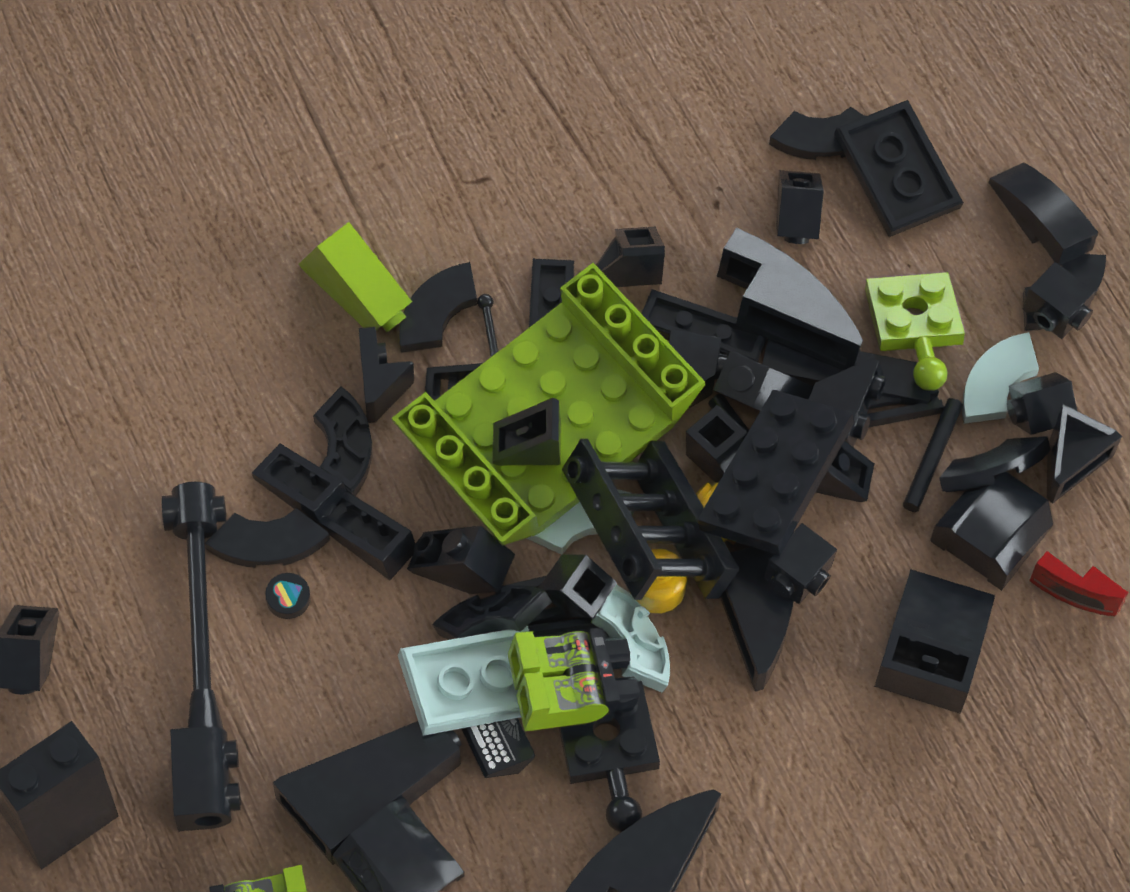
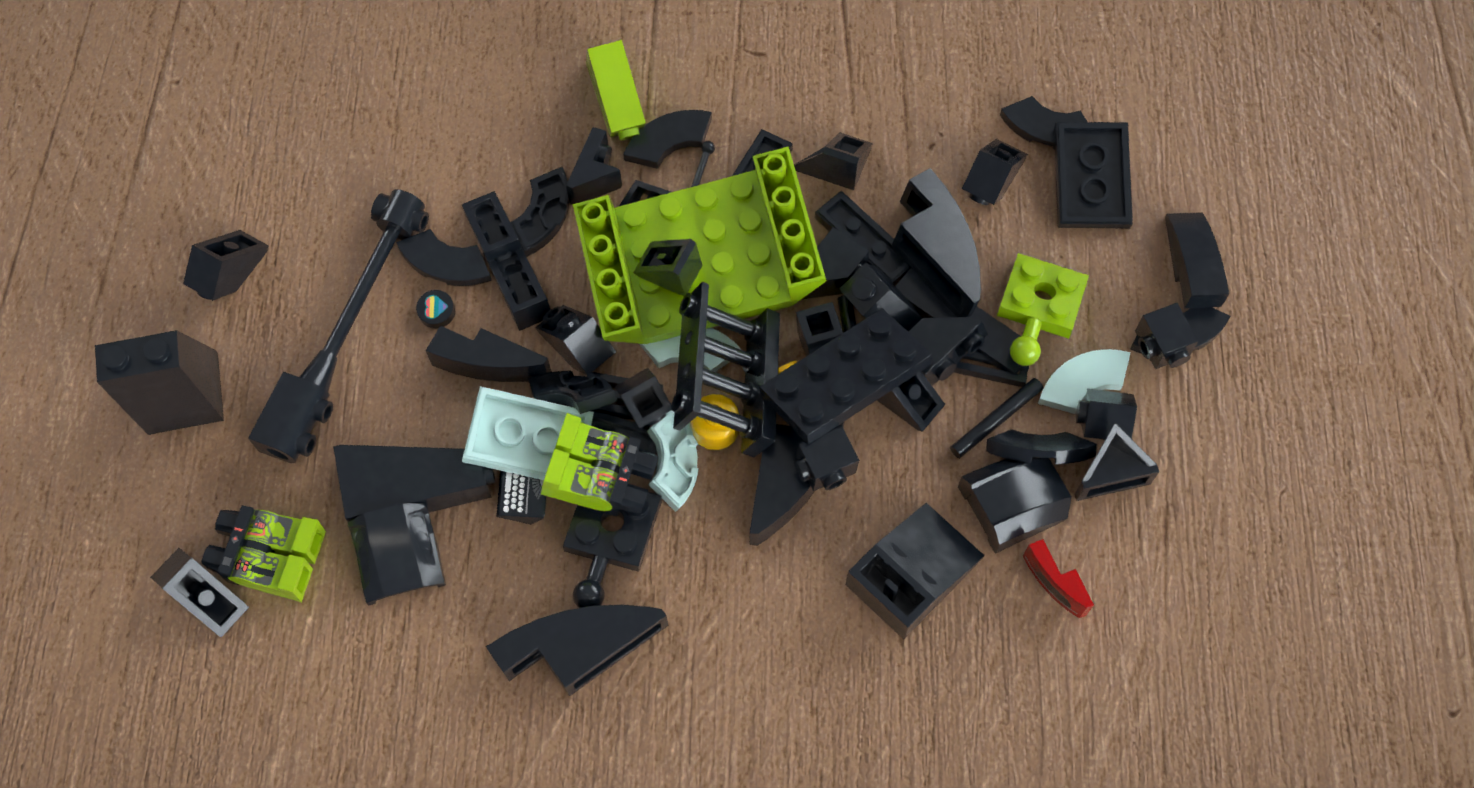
camera: 30 degrees right, 5 degrees up
(380, 621) = (485, 357): none -> black slope

